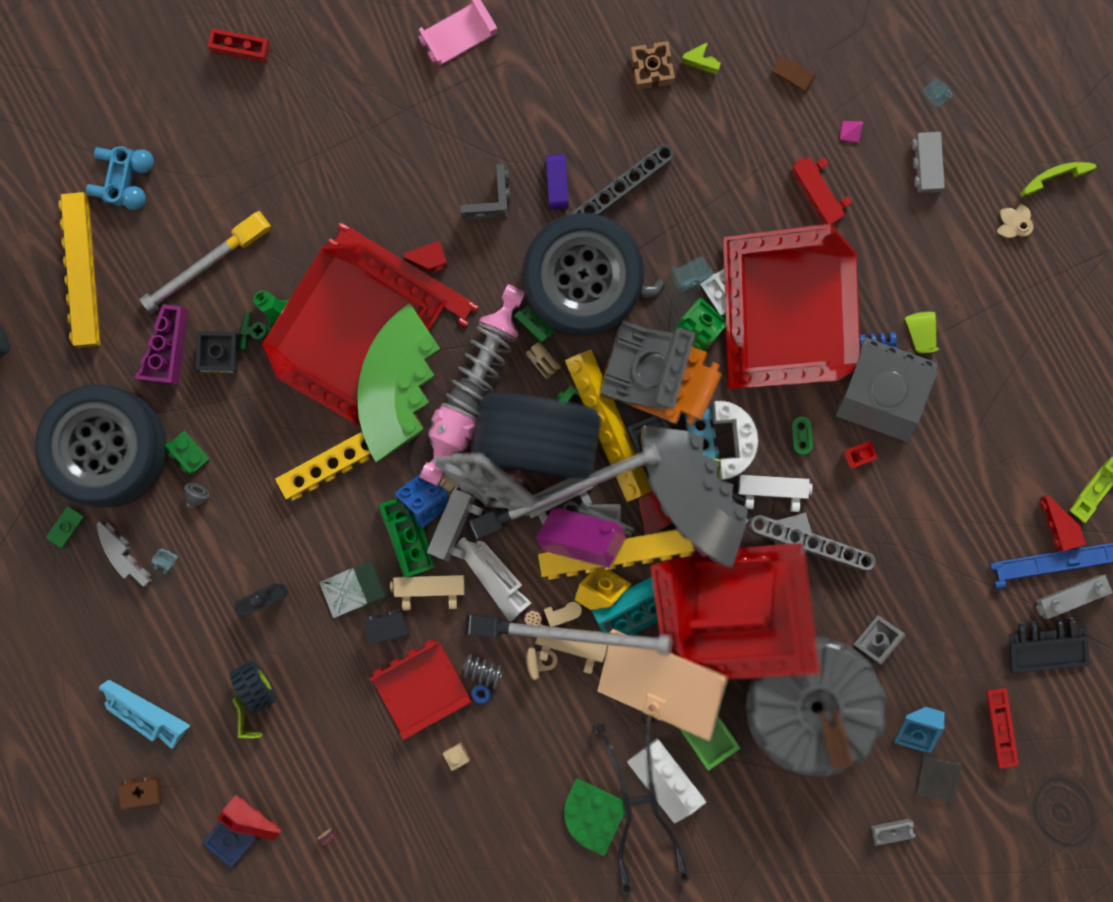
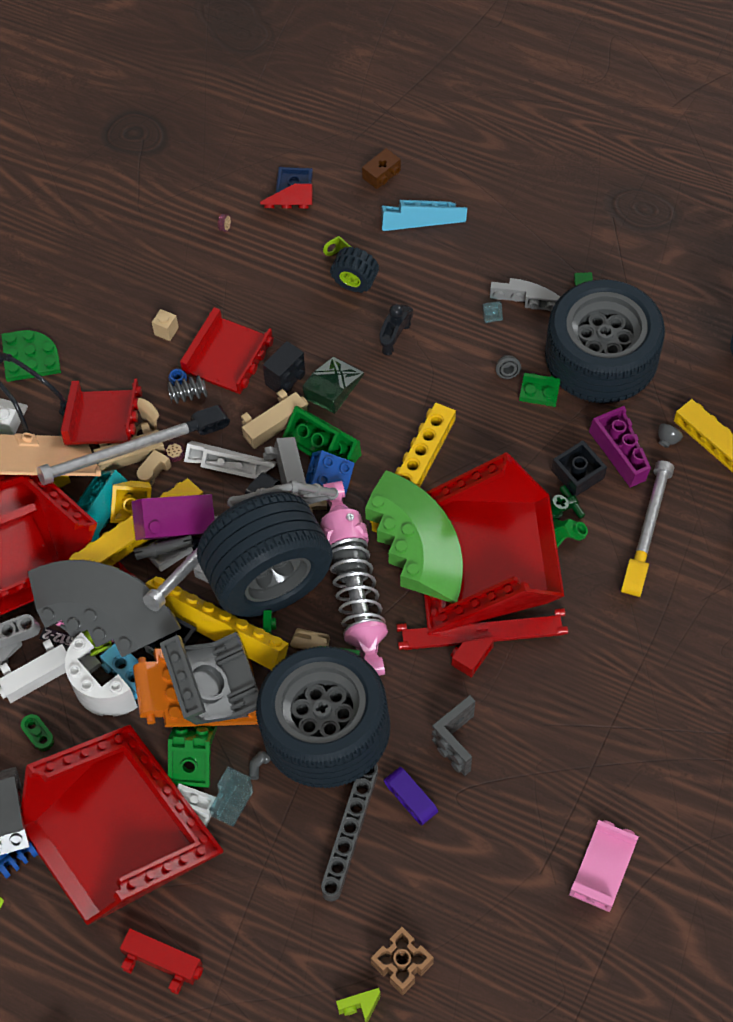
camera: 150 degrees right, 25 degrees down
(118, 330) = (668, 435): none -> dark grey brick
(572, 695) = (100, 415): none -> red panel

